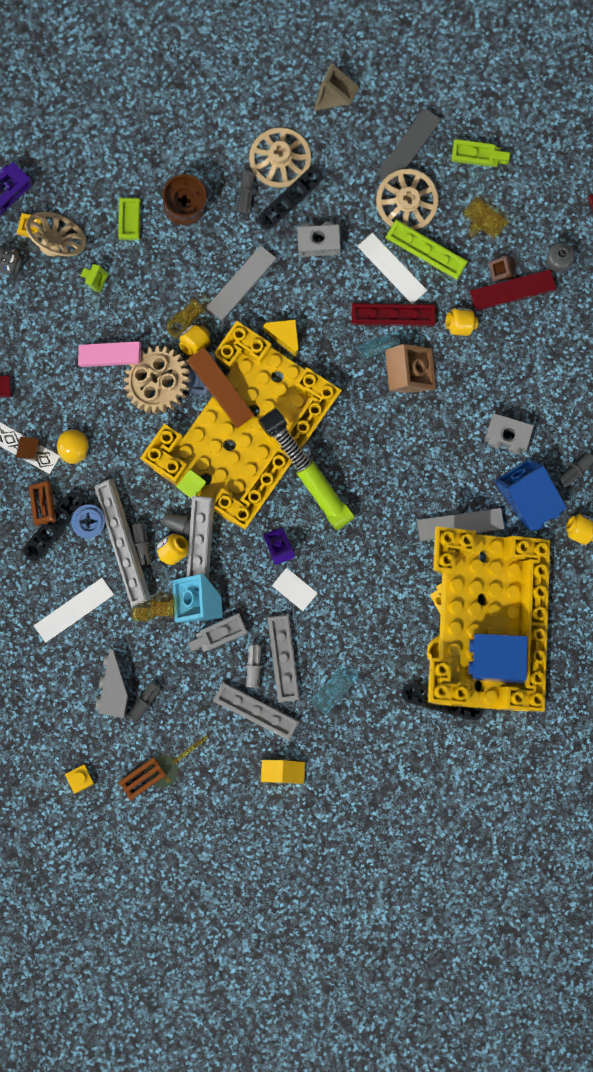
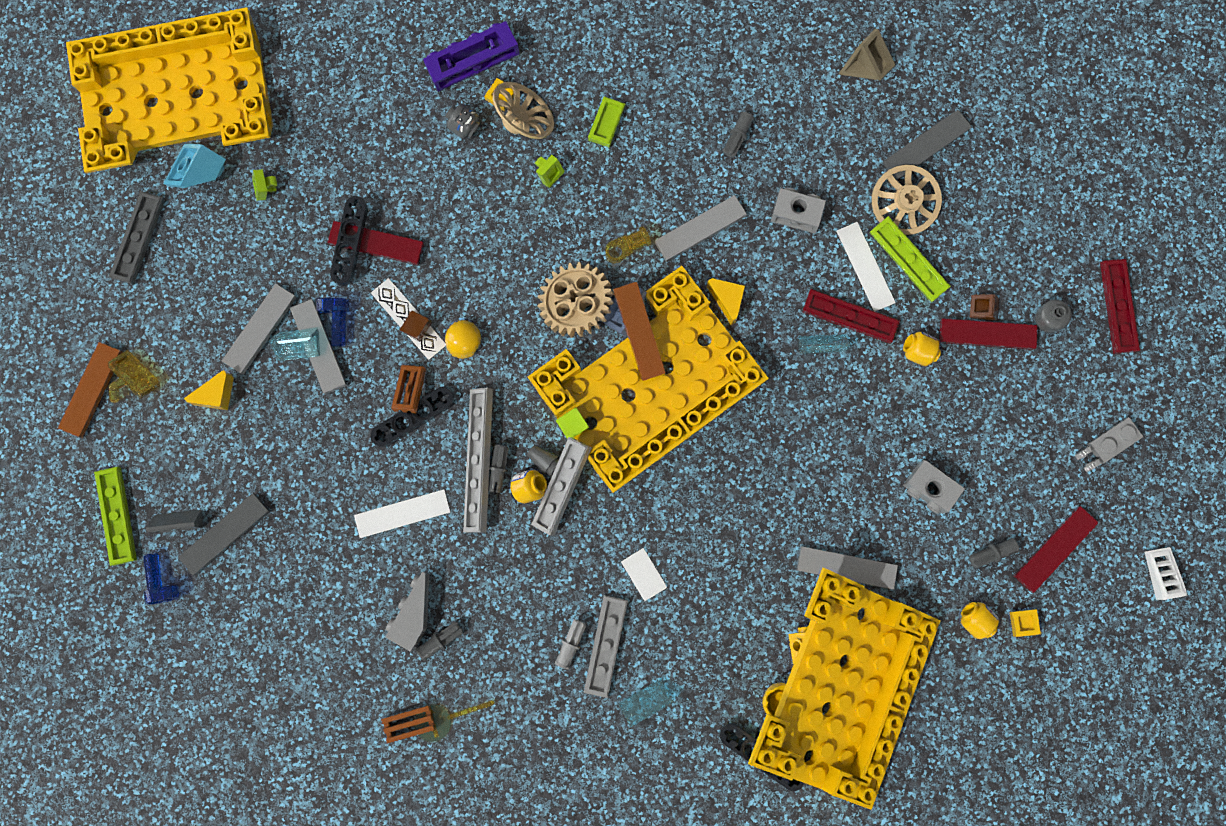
camera: 20 degrees right, 0 degrees up
(79, 779) = (342, 699): yellow plate -> none
(94, 528) = (455, 433): medium blue gear -> none
(109, 354) = (535, 255): bright pink tile -> none
(156, 609) = (489, 545): clear yellow connector -> none
(184, 188) = (668, 107): reddish brown wheel -> none
(194, 339) = (630, 270): yellow head -> none
(195, 599) = (534, 549): medium azure slope -> none
(219, 634) = (546, 595): light grey hinge -> none
(256, 711) = (556, 693): light grey tile -> none
(279, 156) = (787, 109): tan wheel -> none
(279, 546) = (643, 522): dark purple slope -> none
(282, 771) = (561, 771): yellow slope -> none
(289, 198) = (781, 156): black beam -> none
(308, 472) = (717, 505): piece -> none
(410, 369) = (849, 380): medium nougat slope -> none
(478, 154) = (1000, 176): lime hinge -> none
(484, 218) = (982, 247): clear yellow plate -> none
(498, 658) = (843, 738): blue slope -> none
(531, 494) = (936, 562): blue slope -> none

